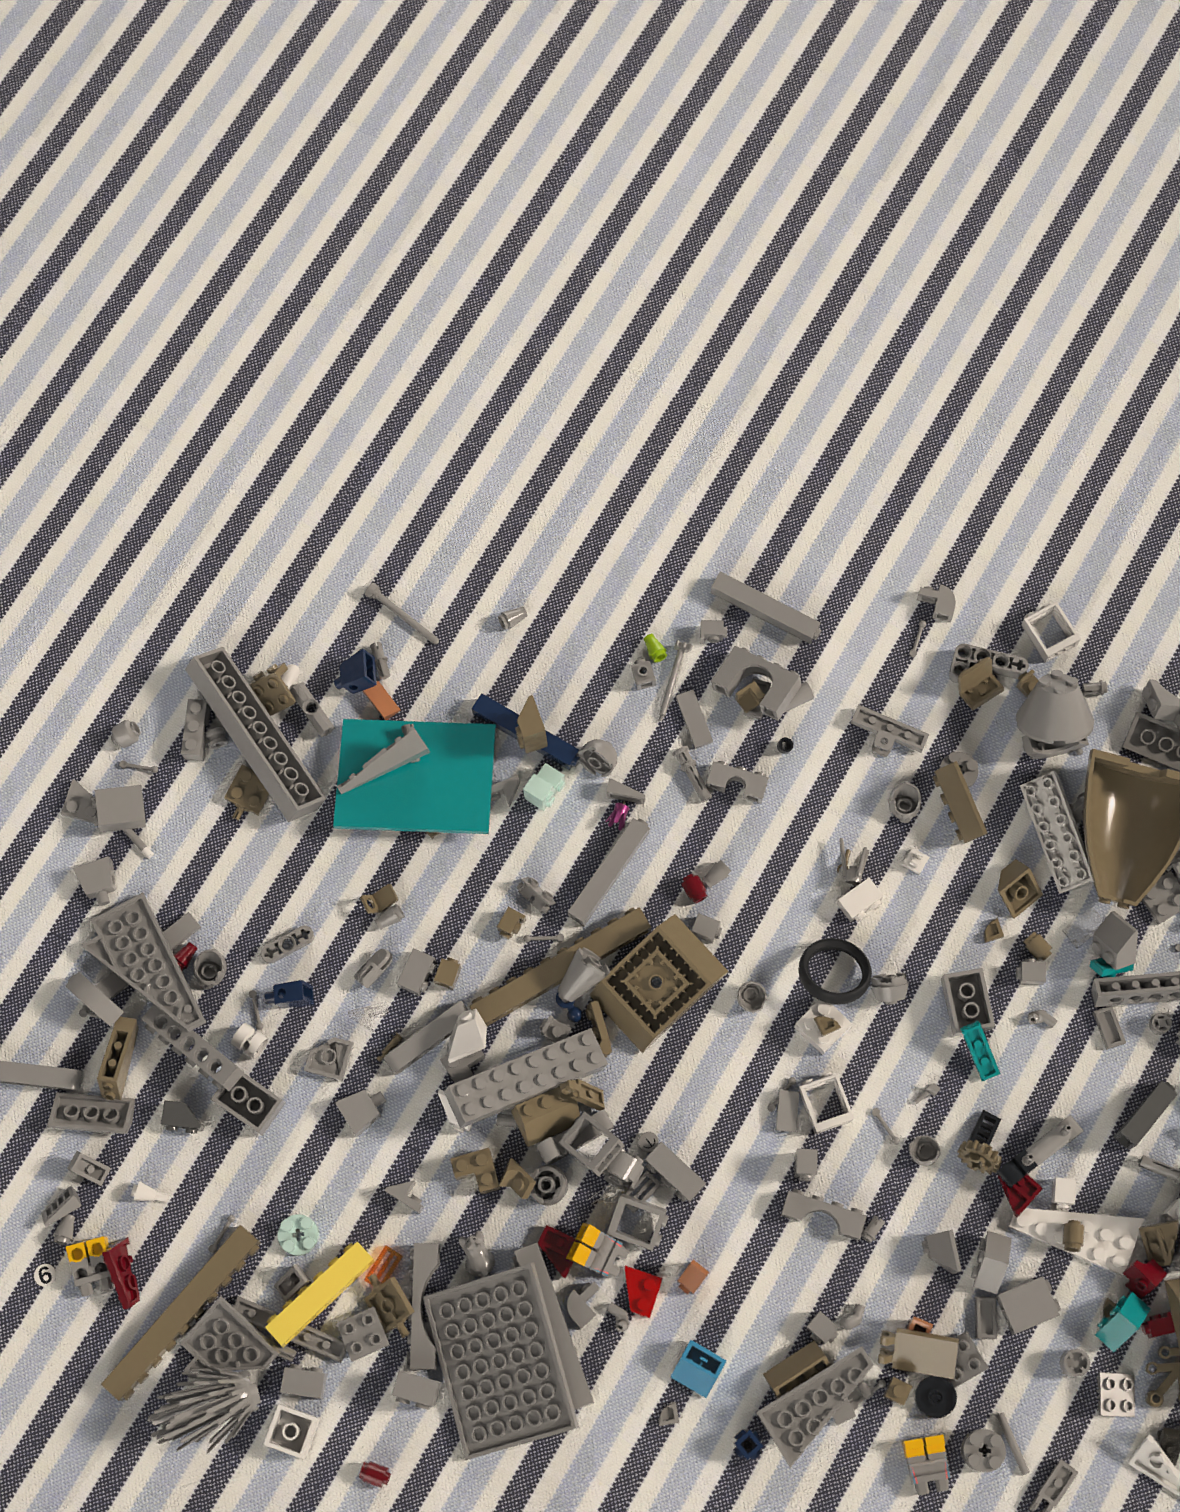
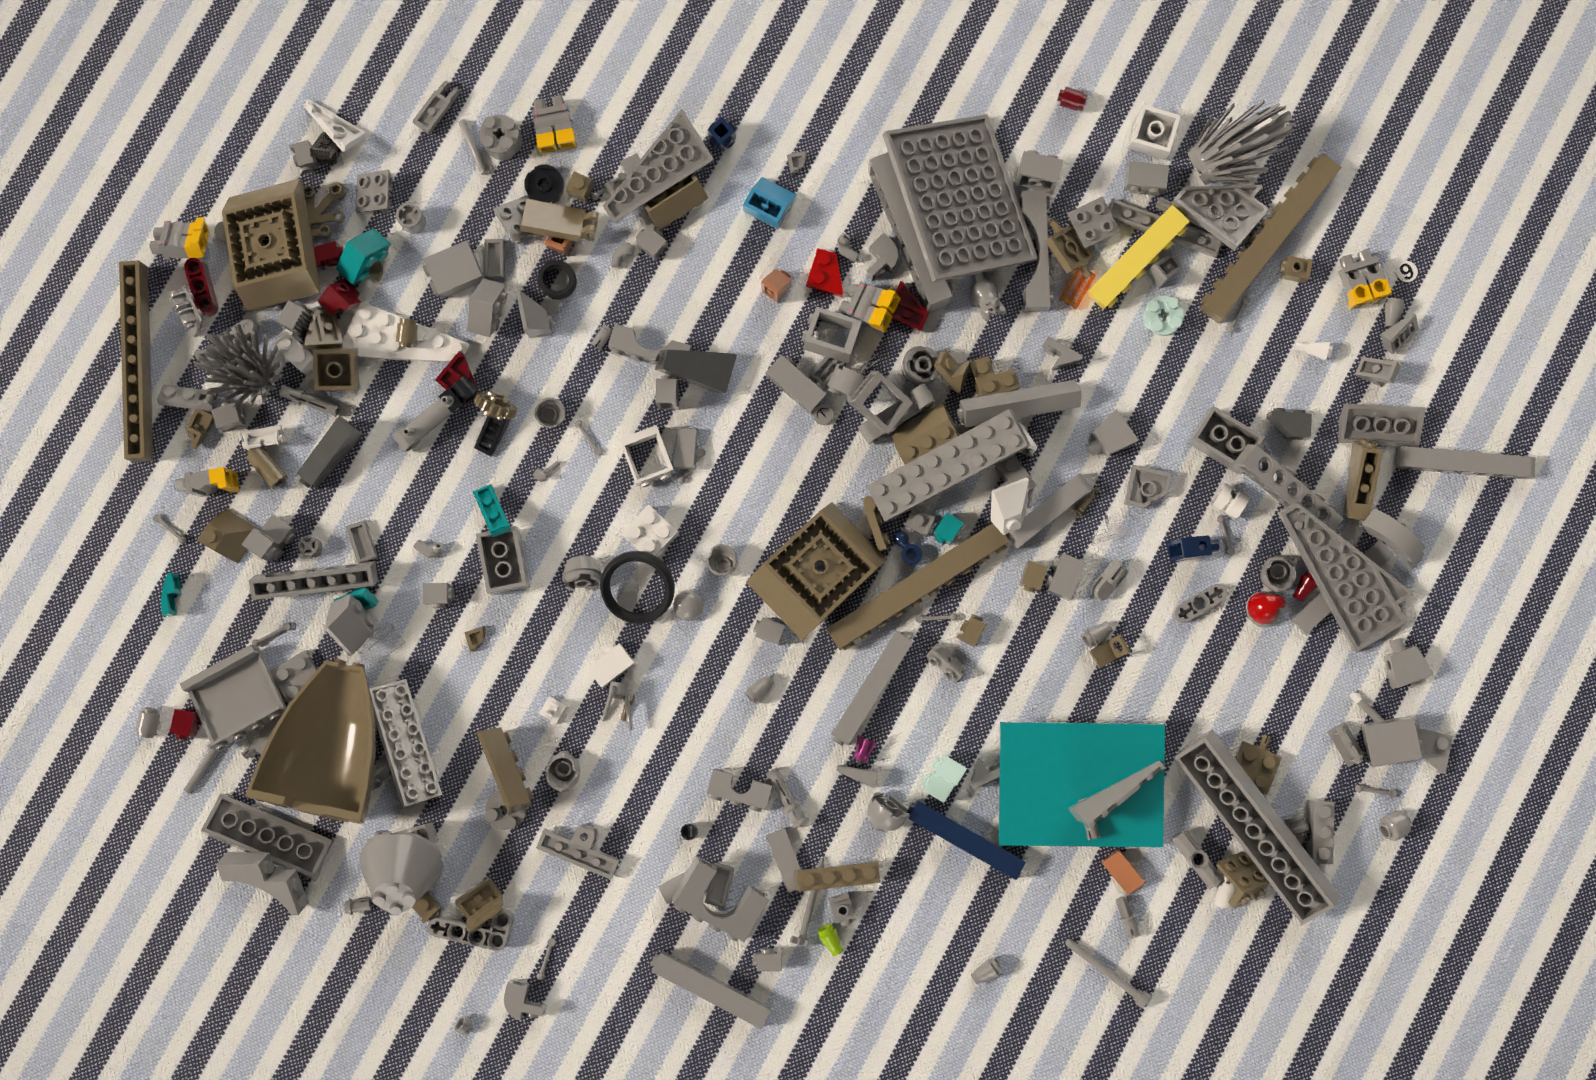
camera: 175 degrees right, 10 degrees up
(120, 1271) = (1334, 271): dark red wing -> none
(151, 1274) = (1290, 273): none -> dark tan brick
(161, 808) = (1346, 744): none -> light grey hinge
(225, 937) = (1265, 609): none -> red piece
(357, 672) = (1151, 900): dark blue torso -> none
(451, 1142) = (1023, 402): none -> light grey brick
(529, 1021) = (947, 529): none -> teal brick
(530, 729) = (962, 835): dark tan slope -> none
(582, 975) = (895, 573): light grey cone -> none
(584, 1093) = (889, 455): dark tan hinge -> none
(655, 698) = (837, 876): none -> dark tan arch
(694, 888) = (782, 672): dark red brick -> none
(749, 697) = (726, 883): dark tan panel -> none
(773, 1189) = (700, 368): none -> dark grey slope
(785, 956) = (688, 605): none -> light grey hair
(826, 1025) = (646, 528): dark tan tile -> none
(934, 1286) = (557, 264): none -> black tyre
(992, 582) = (463, 1025): none -> light grey hinge
(1018, 887) = (448, 682): dark tan slope -> none
(1038, 946) = (429, 621): dark tan brick -> none
(1063, 1192) = (414, 377): white brick -> none
(1072, 637) = (386, 978): white window -> none
(1143, 1200) = (336, 369): none -> dark tan brick

